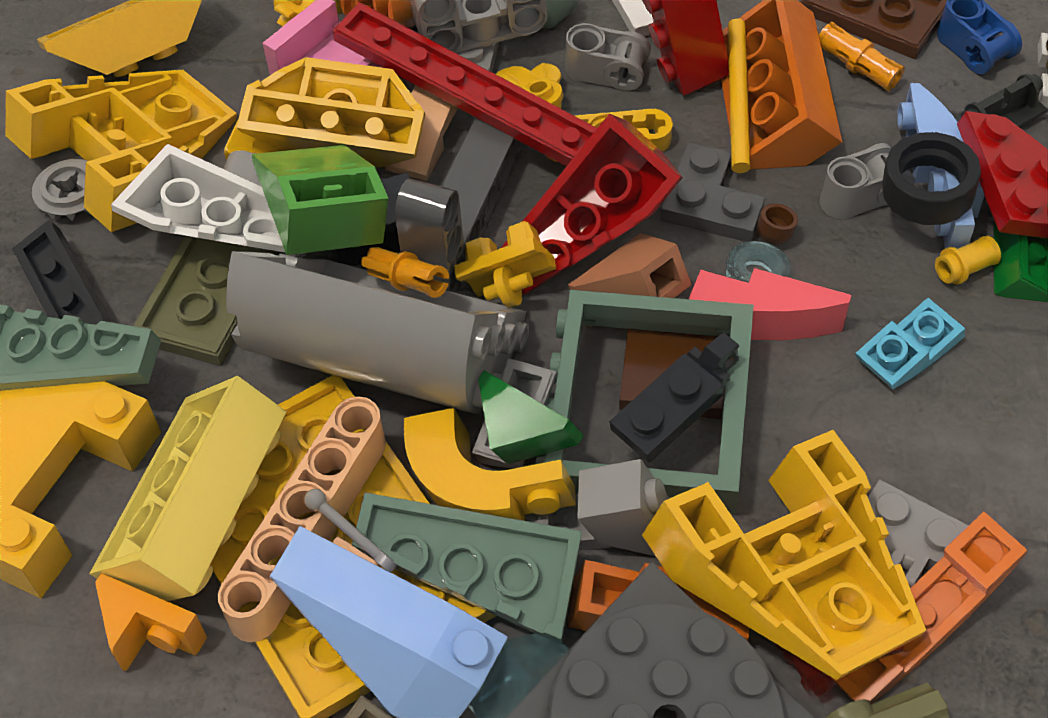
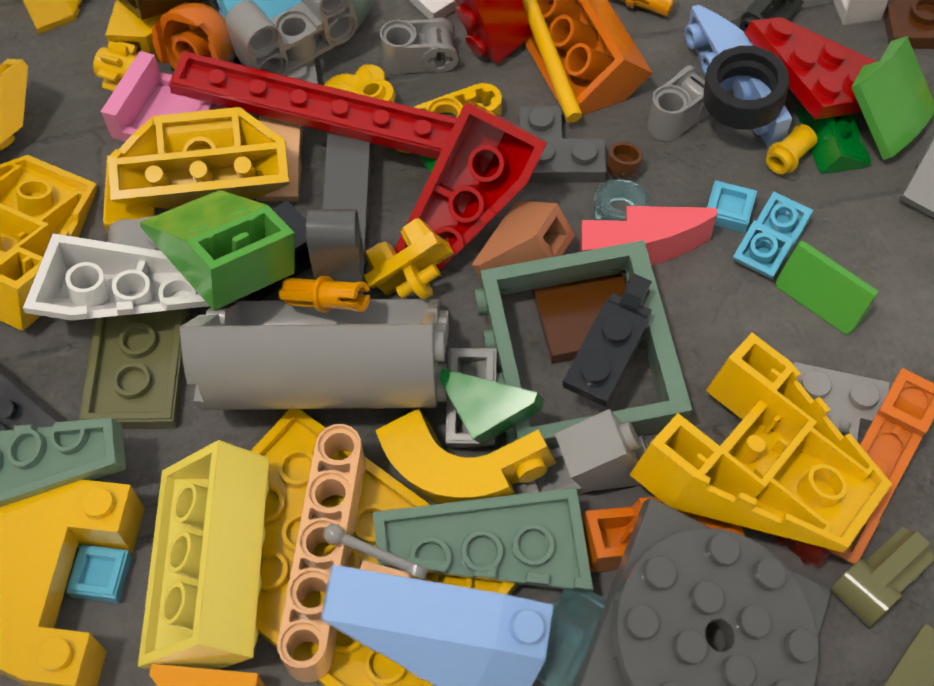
camera: 20 degrees left, 5 degrees up
(93, 480) = (99, 574): none -> medium azure tile
(877, 301) = (733, 205): none -> medium azure tile
(946, 414) = (826, 288): none -> bright green slope

